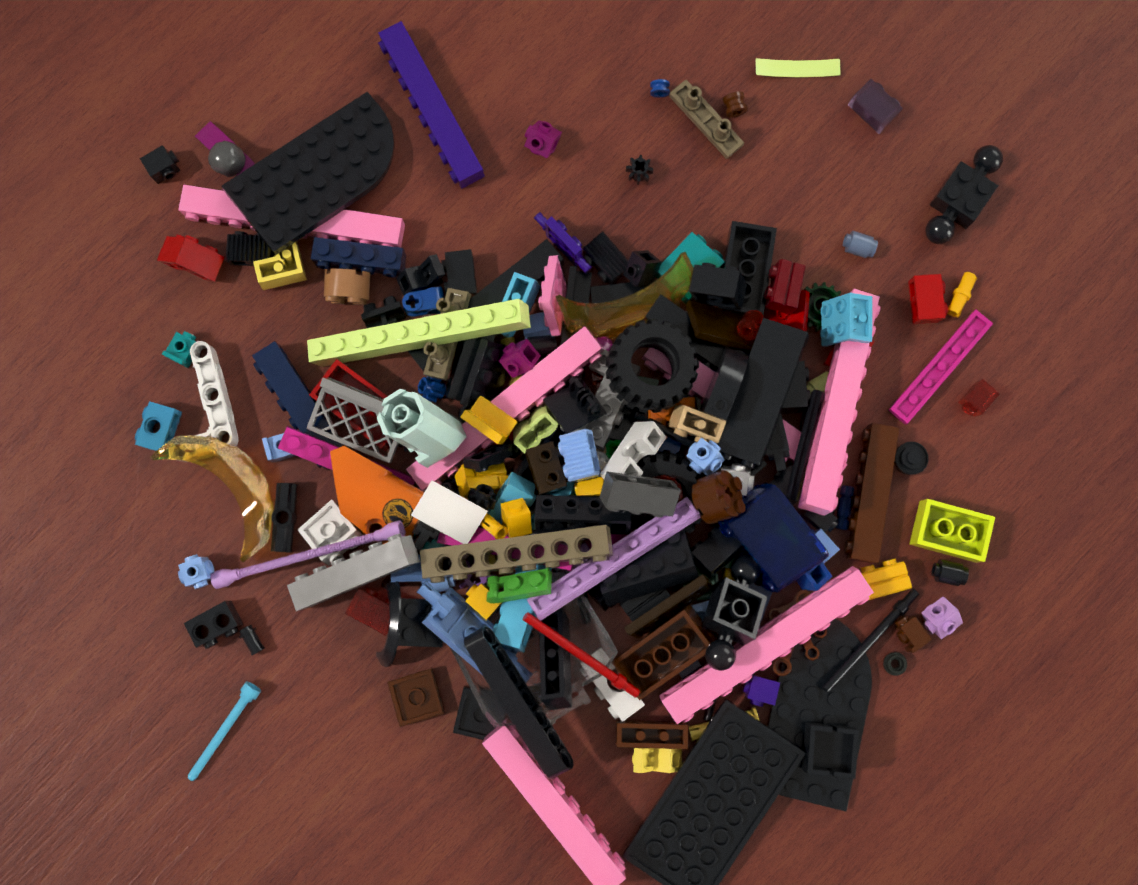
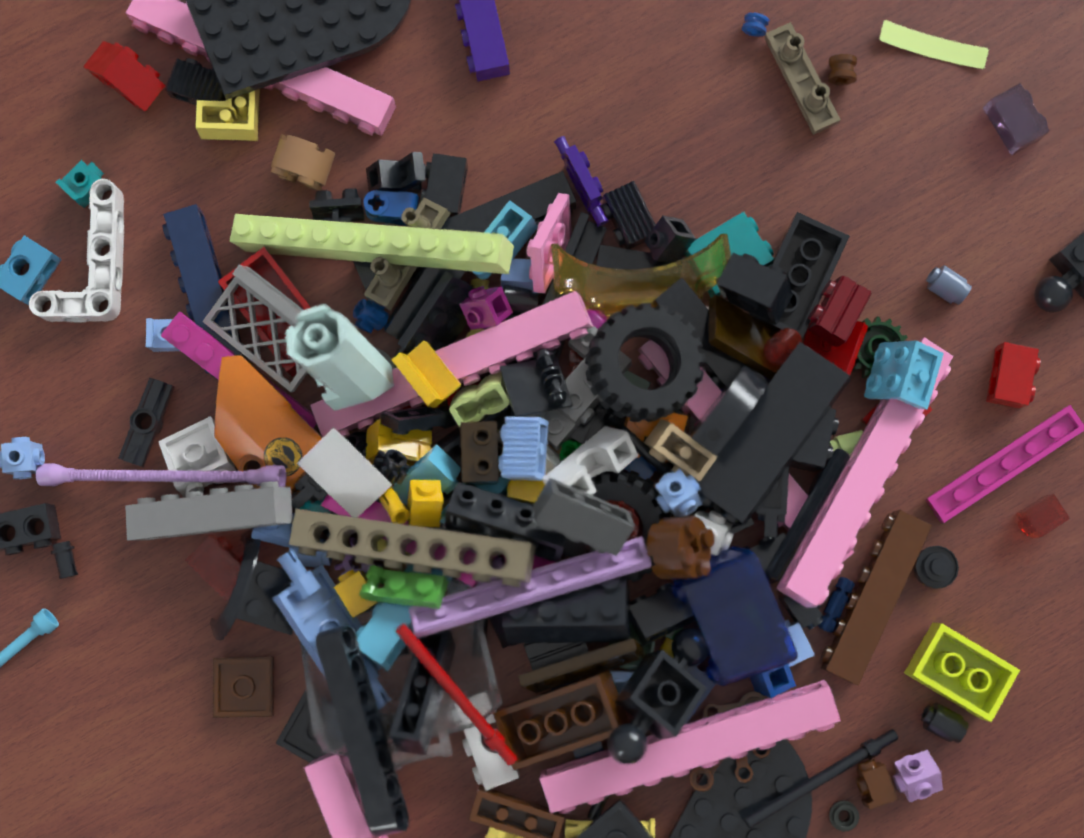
camera: 15 degrees right, 0 degrees up
(240, 476) = (106, 353): clear yellow windscreen -> none
(358, 256) = (327, 129): dark blue brick -> none
(542, 138) = (592, 47): magenta brick -> none
(639, 163) = (703, 110): black gear -> none
(761, 690) = (668, 801): dark purple brick -> none
(887, 579) = (862, 707): yellow brick -> none
(961, 294) = (1057, 381): yellow pin -> none

